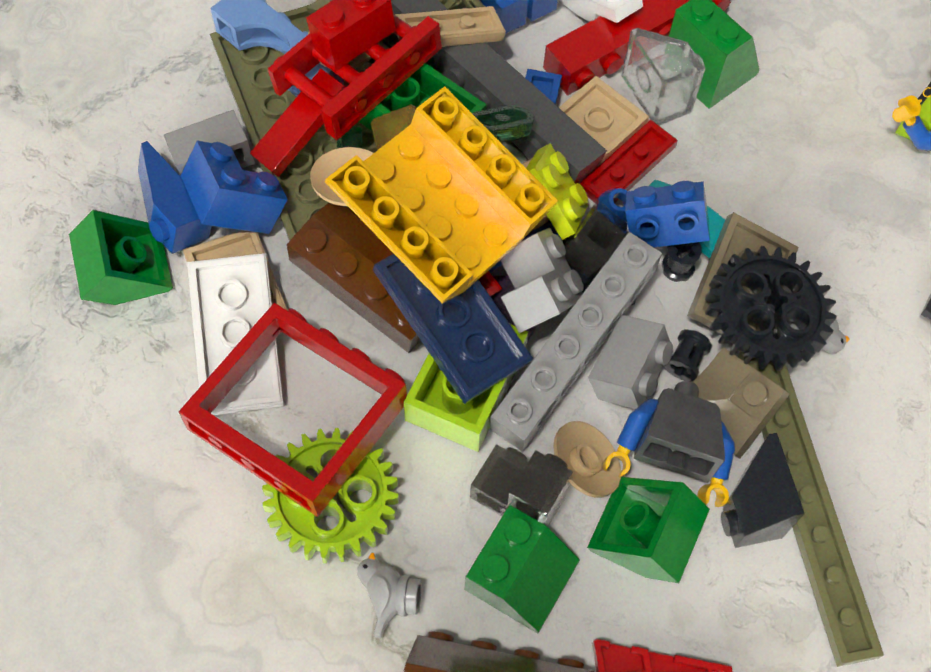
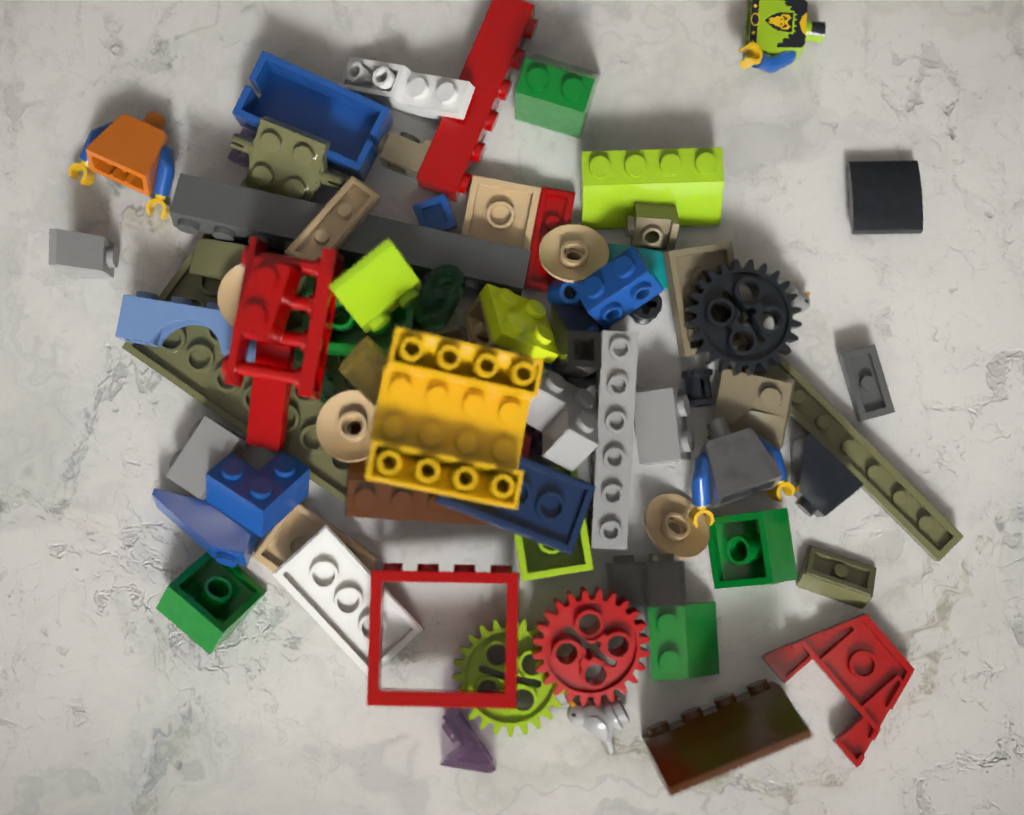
camera: 30 degrees left, 20 degrees up
(242, 537) = (472, 752): none -> clear purple slope
(390, 517) = (569, 670): none -> red gear
(454, 59) = (377, 287): none -> lime slope
(545, 26) = (402, 153): none -> dark tan brick
(639, 169) = (576, 243): none -> tan dish
(662, 74) = (531, 144): clear slope -> none
(720, 617) = (837, 577): none -> olive slope
(744, 195) = (653, 226): none -> dark tan brick
(750, 170) = (677, 177): none -> lime slope
(860, 450) = (866, 383): none -> dark grey plate

